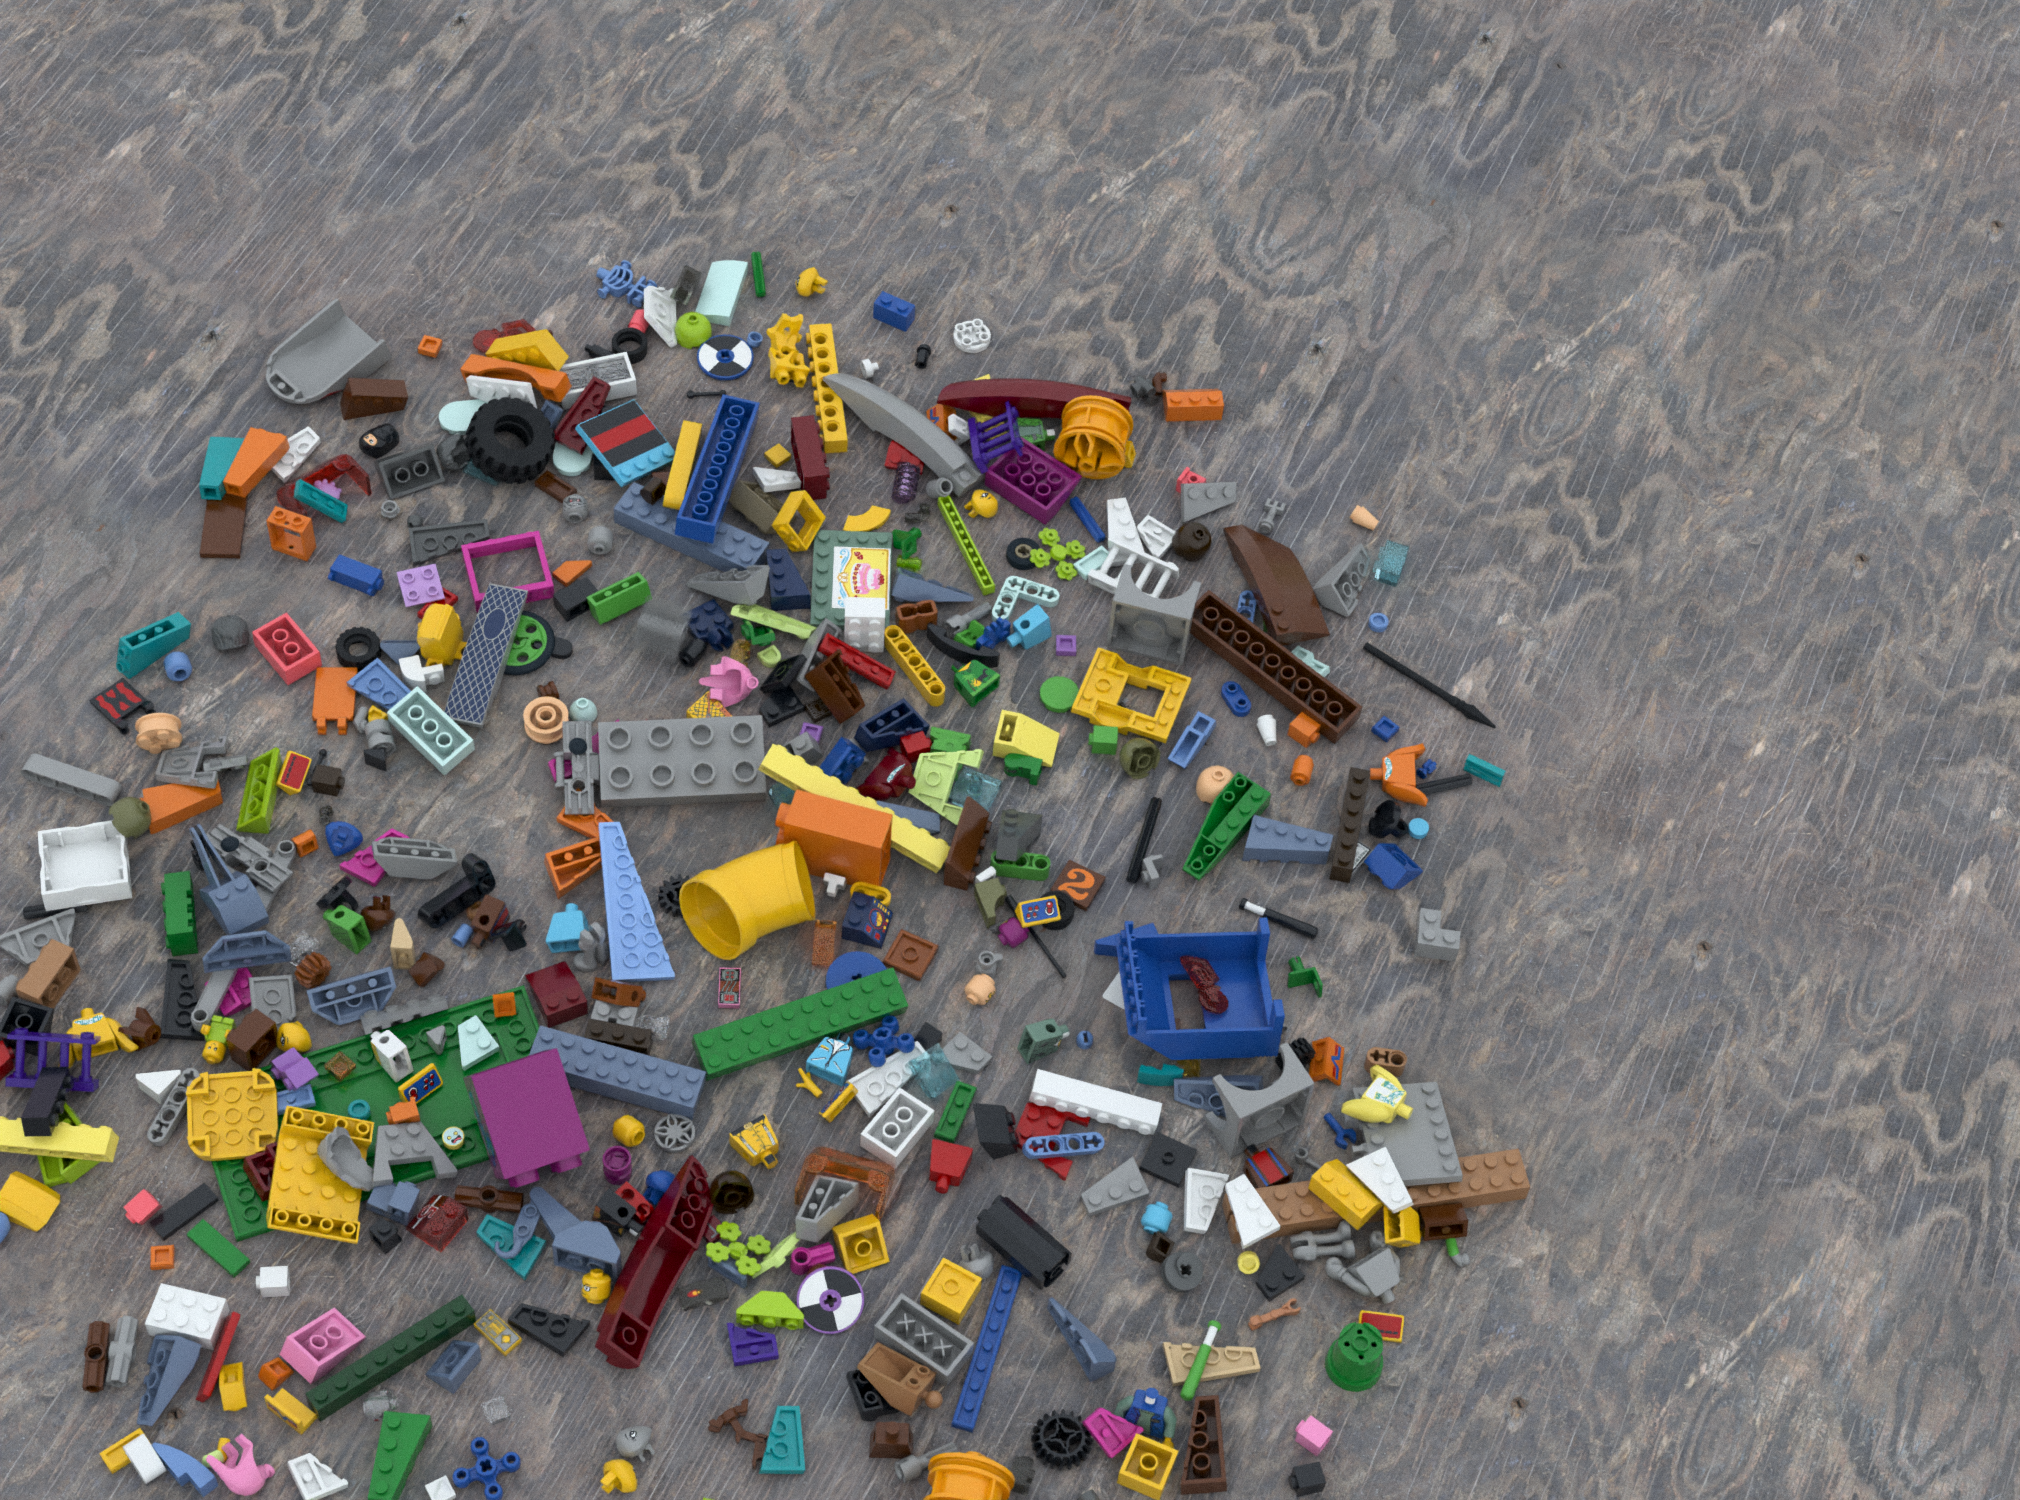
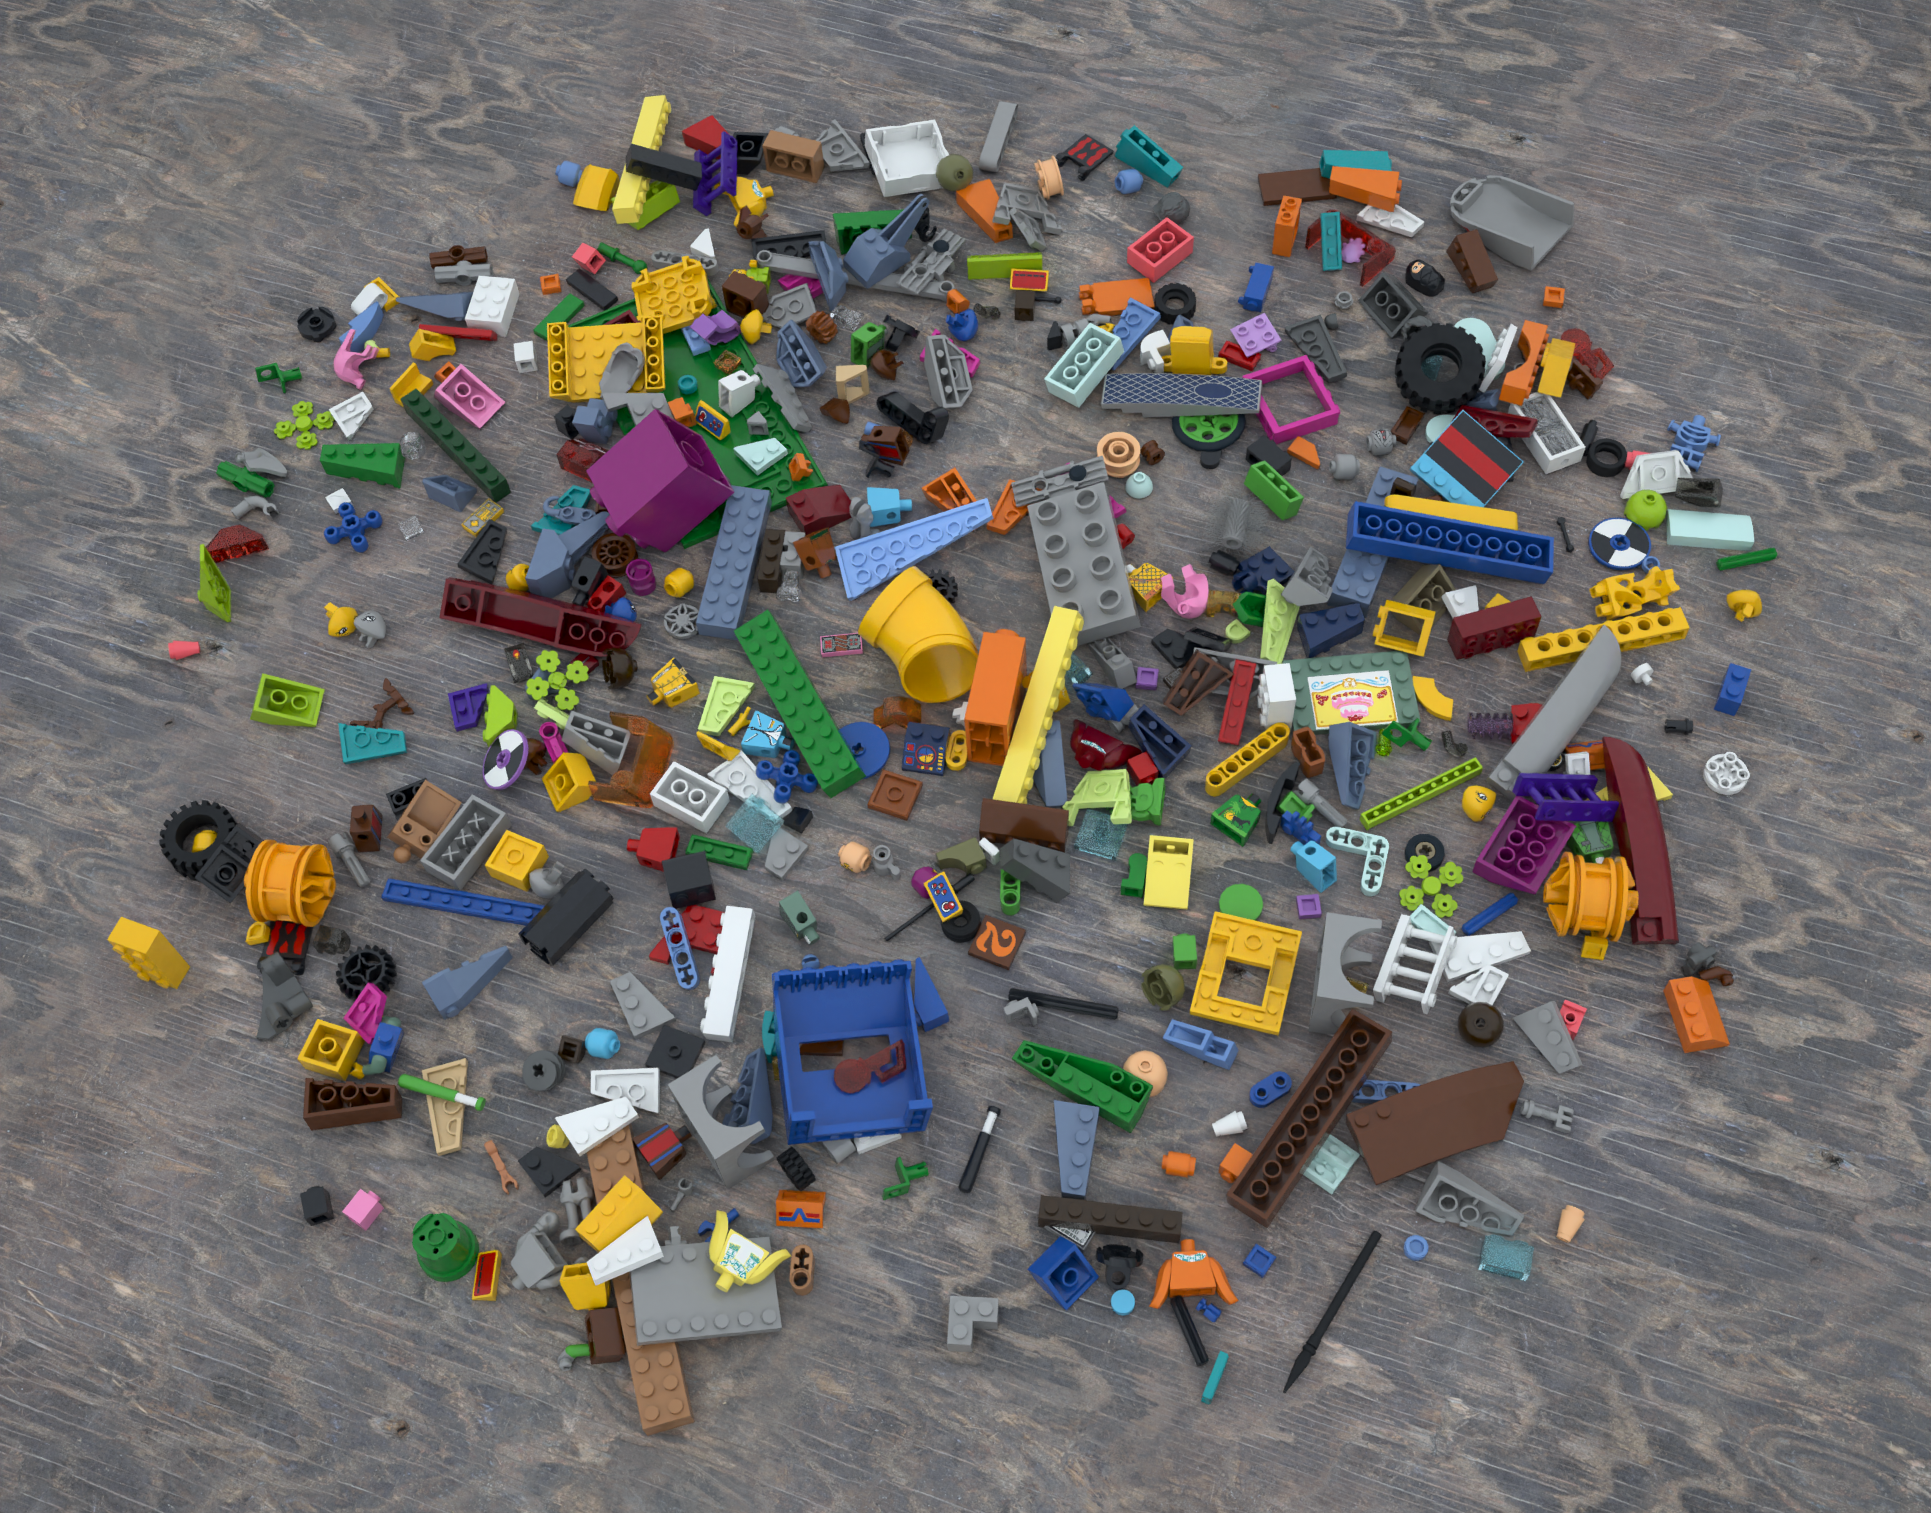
camera: 95 degrees right, 5 degrees up
(159, 1161) = (613, 254): none -> green pin
(591, 1190) = (611, 545): none -> reddish brown wheel
(786, 1099) = (723, 703): none -> yellowish green wing
(939, 488) = (1482, 757): light grey brick -> none

